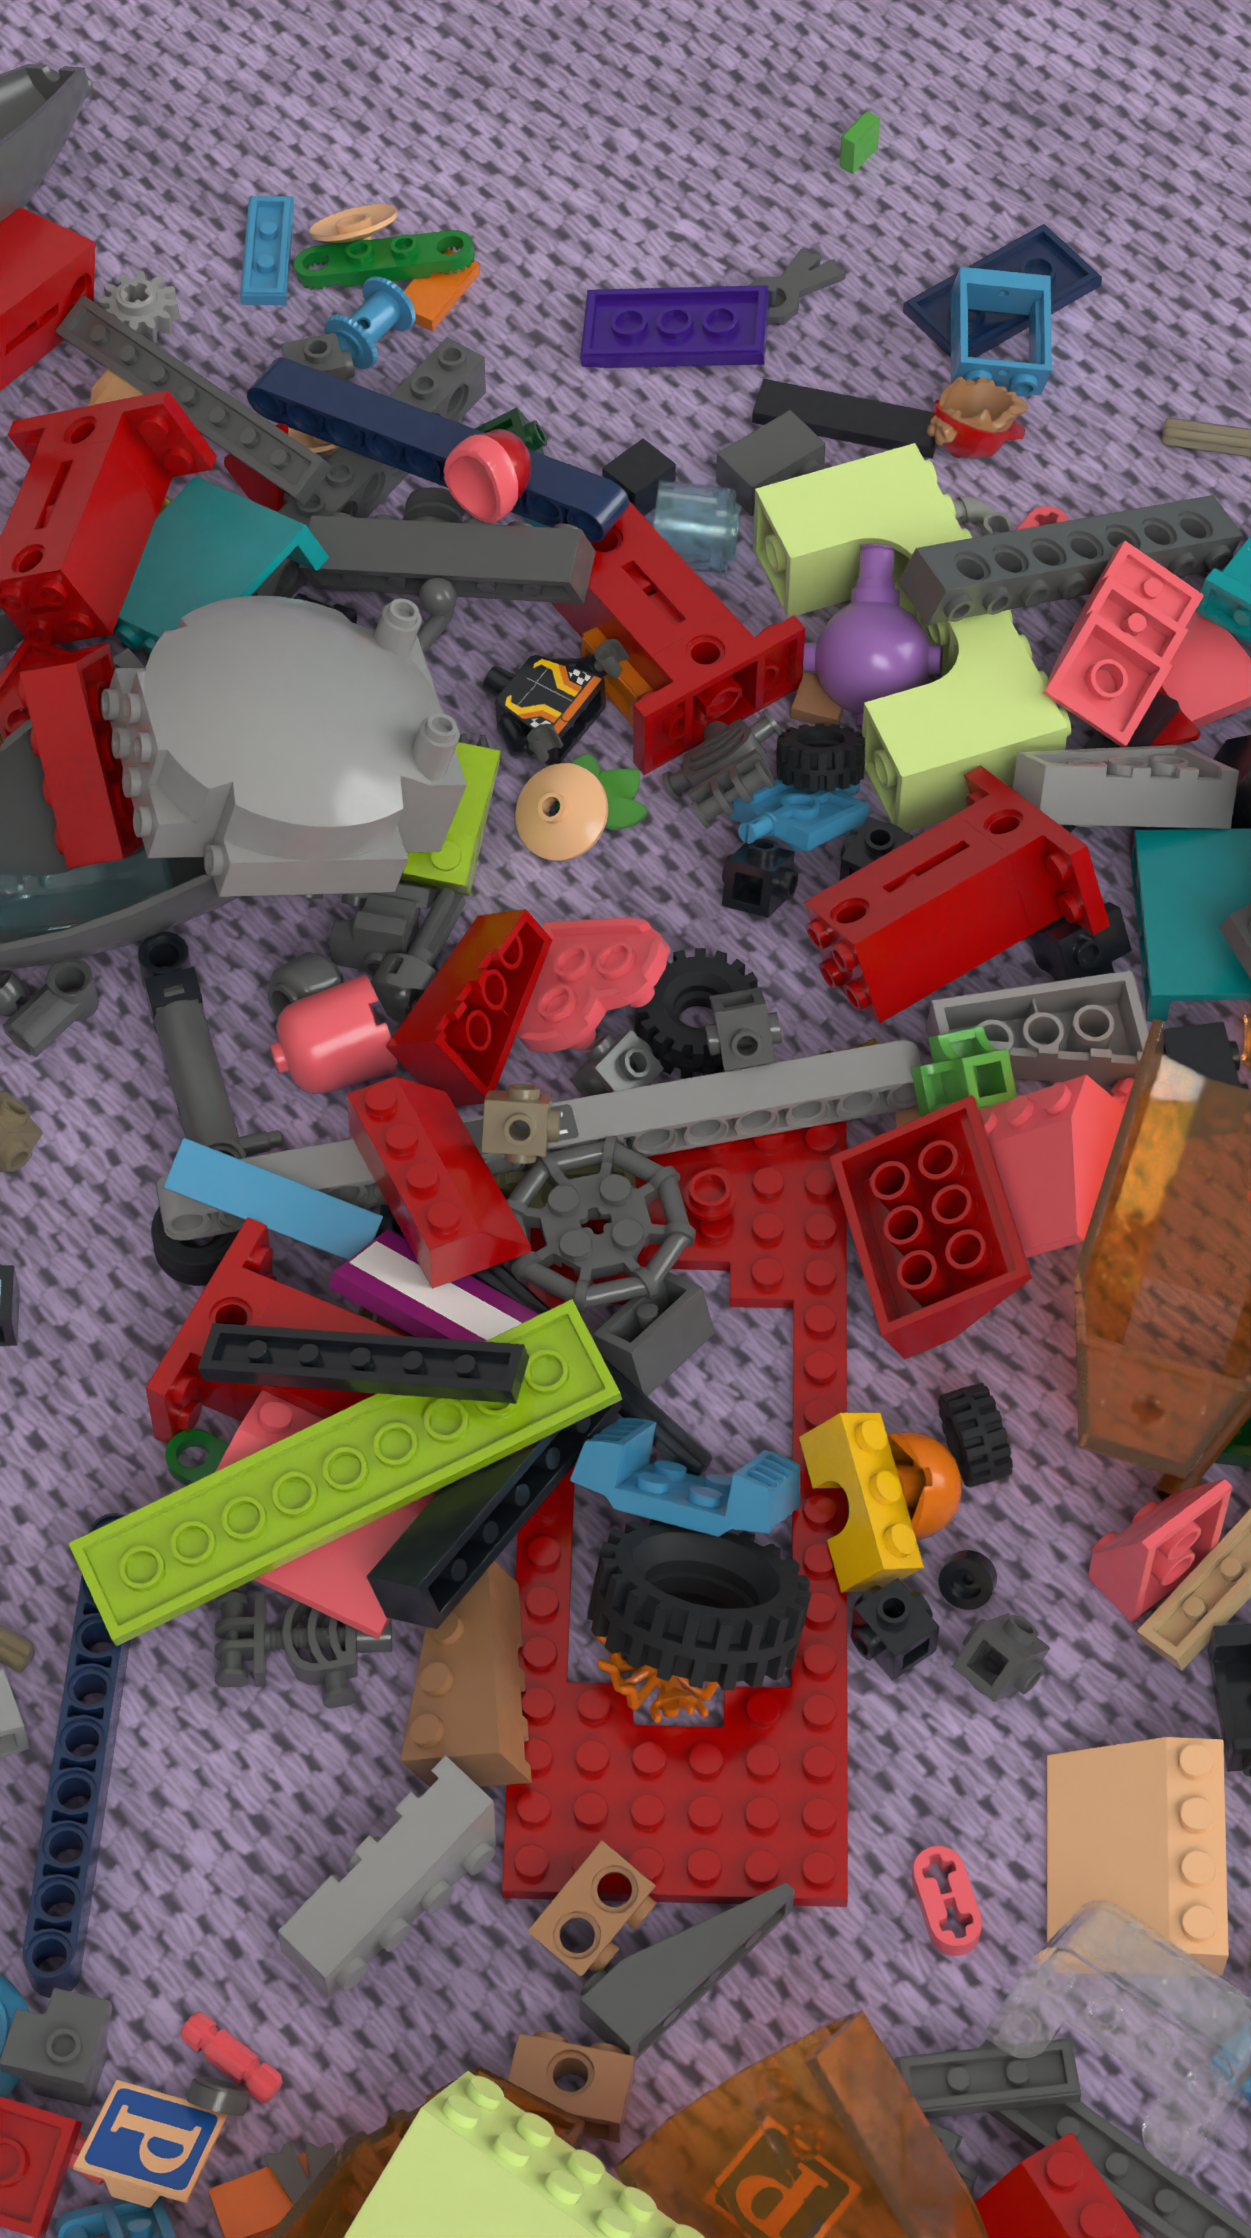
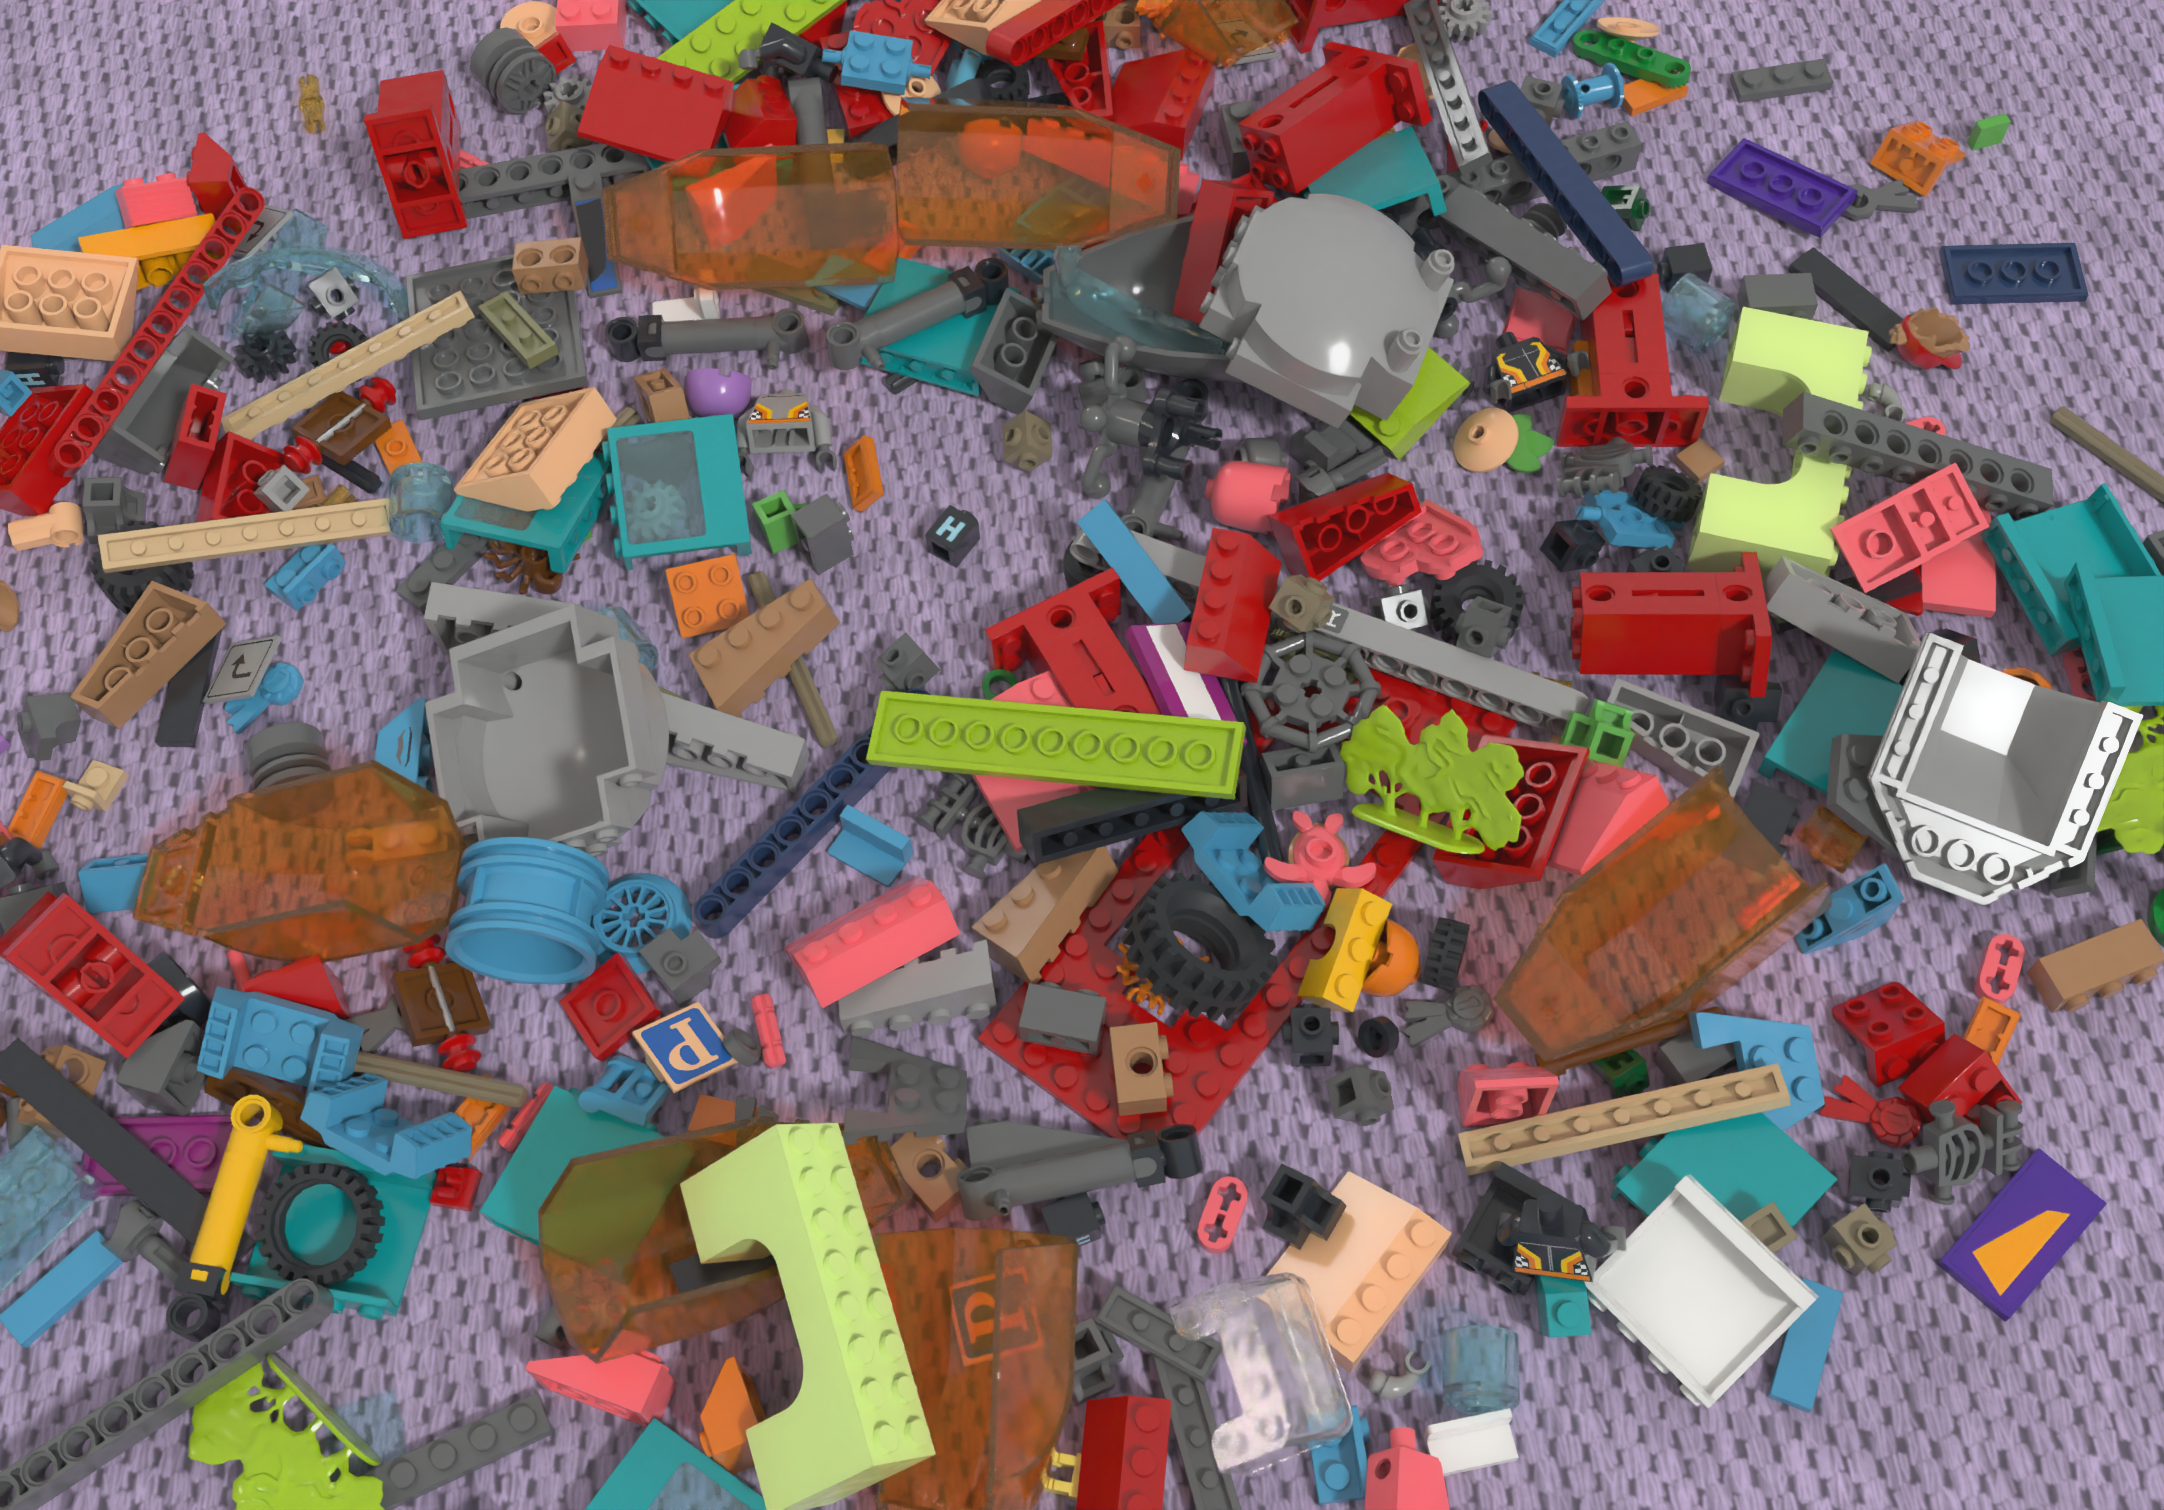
camera: 40 degrees right, 5 degrees up
(59, 1500) = (905, 665): none -> dark grey brick
(151, 1023) = (1151, 427): none -> wheel
(184, 1750) = (871, 847): none -> dark azure panel
(288, 1852) = (873, 940): none -> coral slope
(364, 1363) = (1103, 688): black plate -> none
(488, 474) = (1573, 208): coral piece -> none
(490, 1997) = (921, 1095): none -> dark grey wing
(510, 633) = (1540, 318): none -> coral piece
(578, 199) = (1781, 80): none -> dark grey plate
(581, 1901) = (1010, 1073): medium nougat brick -> none
(598, 1793) = (1063, 1018): none -> dark grey brick
(741, 1823) = (1135, 1091): none -> medium nougat brick
(745, 1417) = (1319, 858): none -> coral animal
(783, 2017) = (1074, 1218): none -> black brick
(800, 211) = (1916, 156): none -> orange bracket
(818, 1892) = (1140, 1159): none -> dark grey piece
(835, 1224) = (1442, 777): none -> lime plant
(873, 642) = (1751, 441): medium lavender piece -> none
(1006, 294) = (2007, 270): dark azure window -> none
(1031, 1828) = (1299, 1207): none -> black brick
(1039, 1486) = (1465, 1009): none -> dark grey piece

